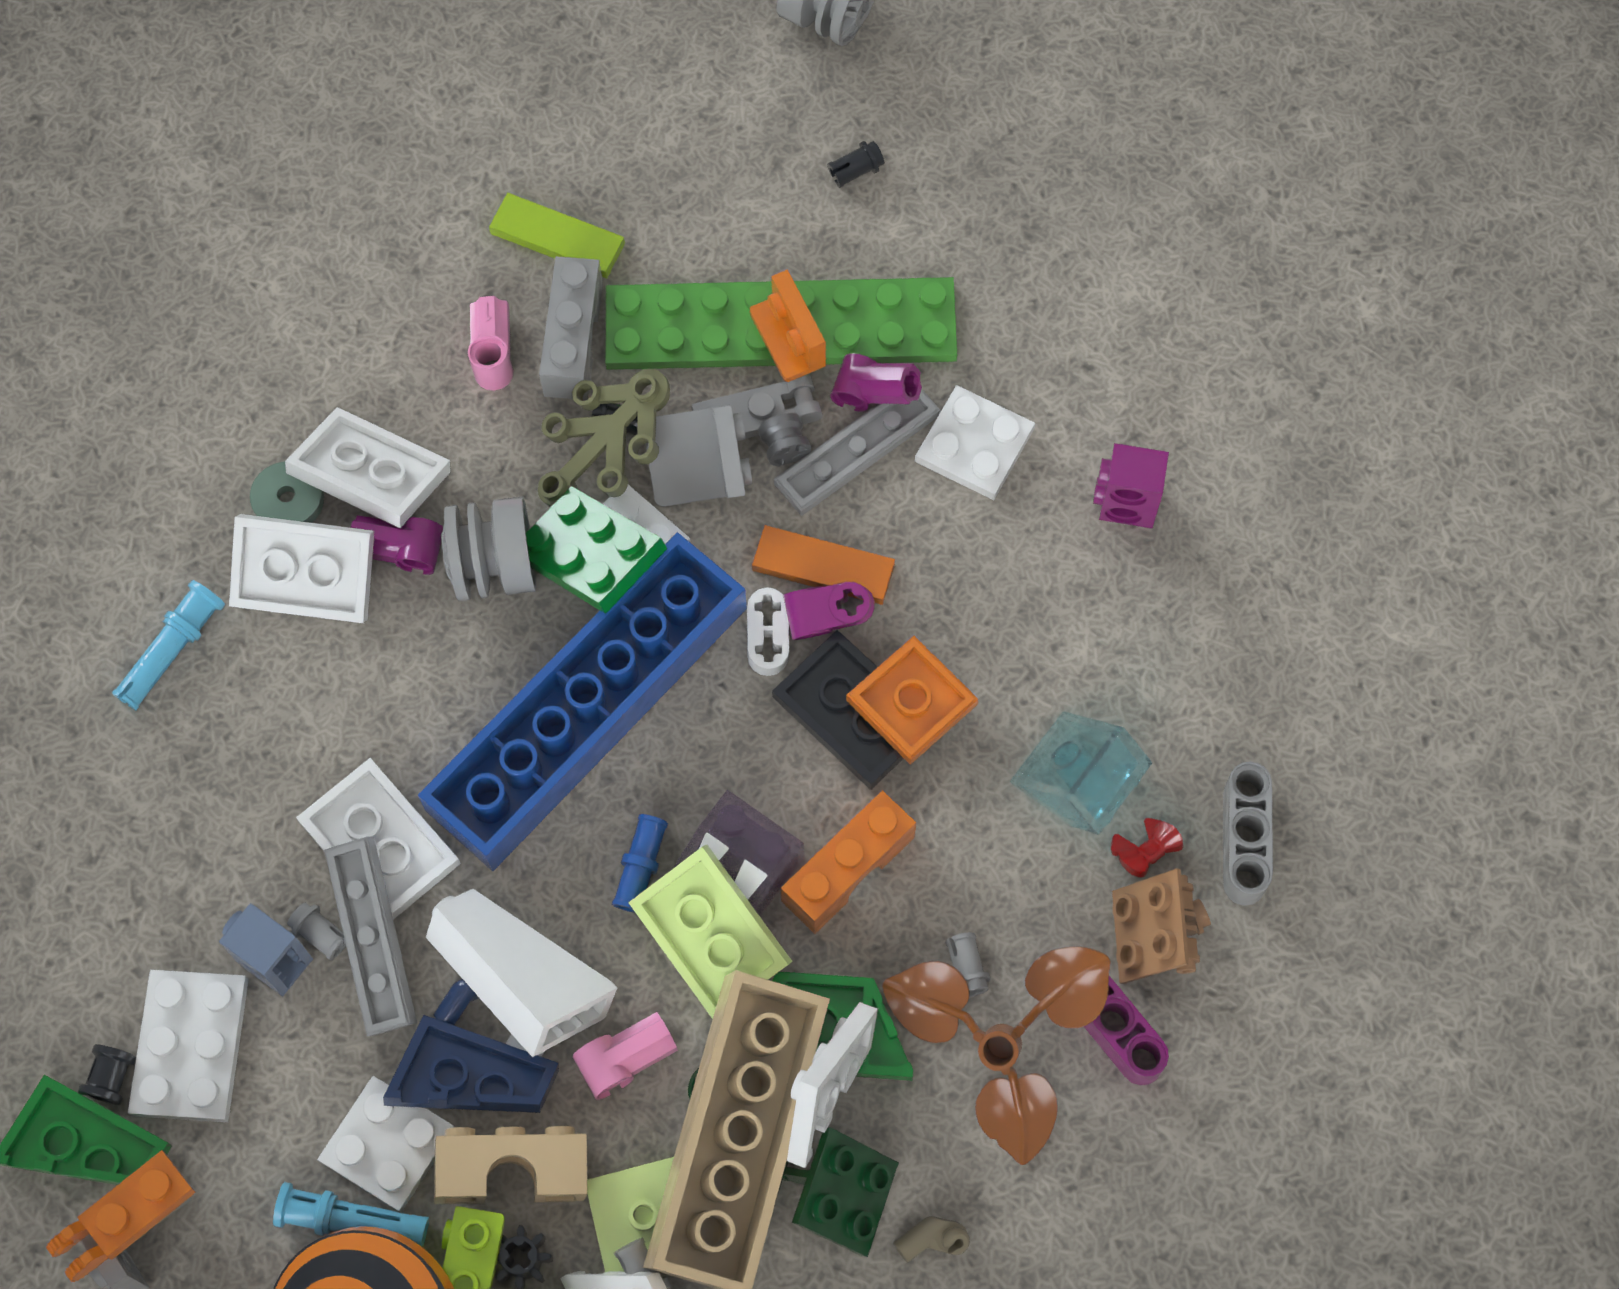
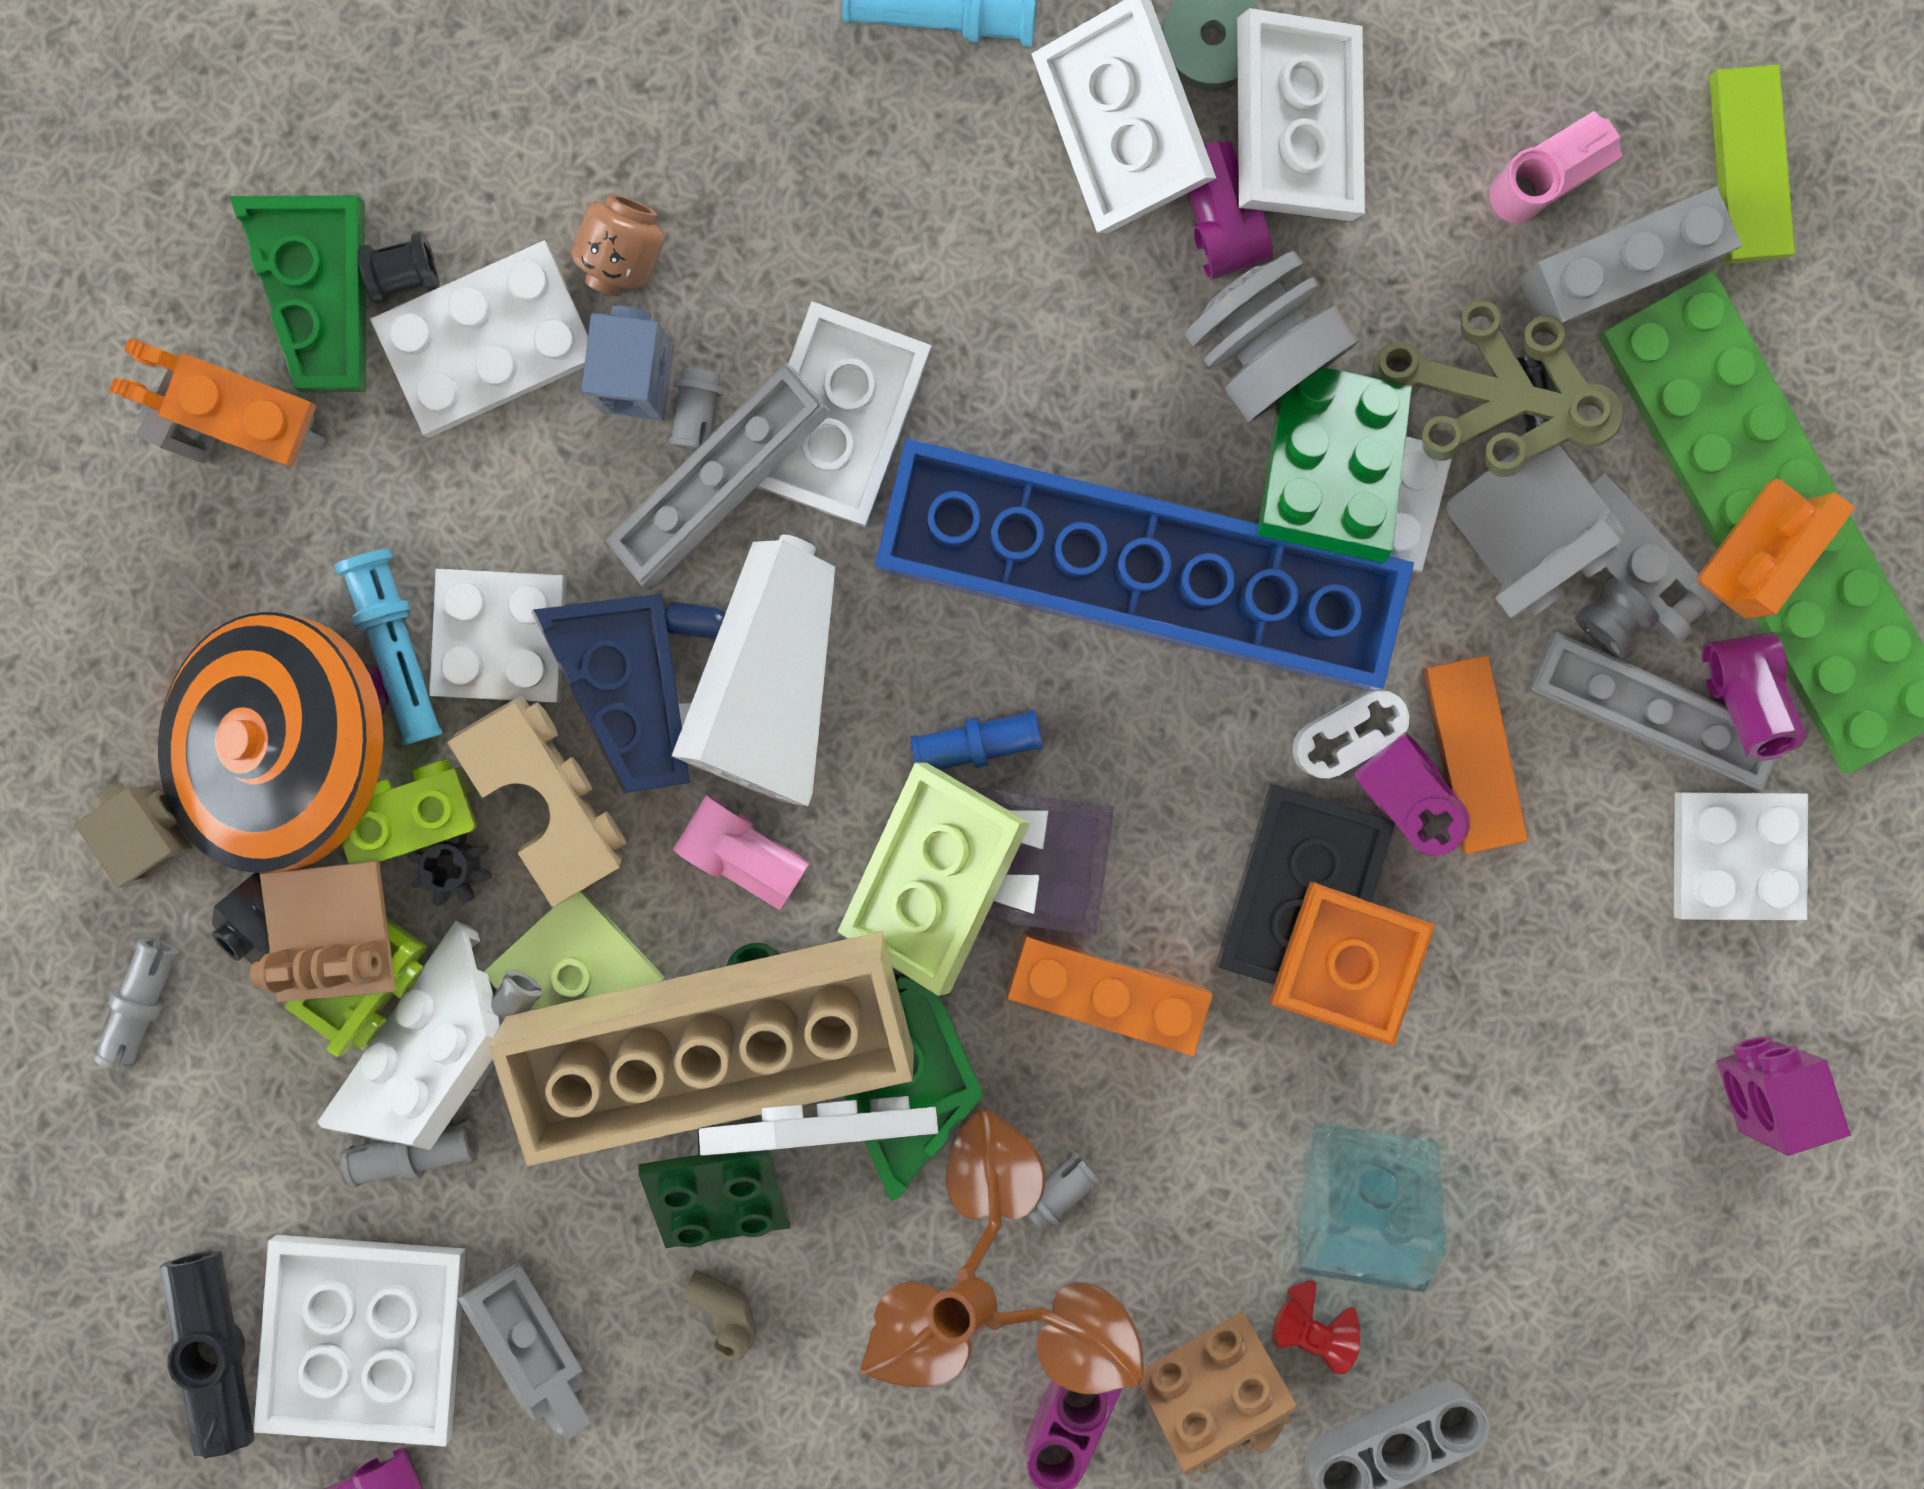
camera: 60 degrees right, 20 degrees up
(183, 921) = (617, 244): none -> nougat head

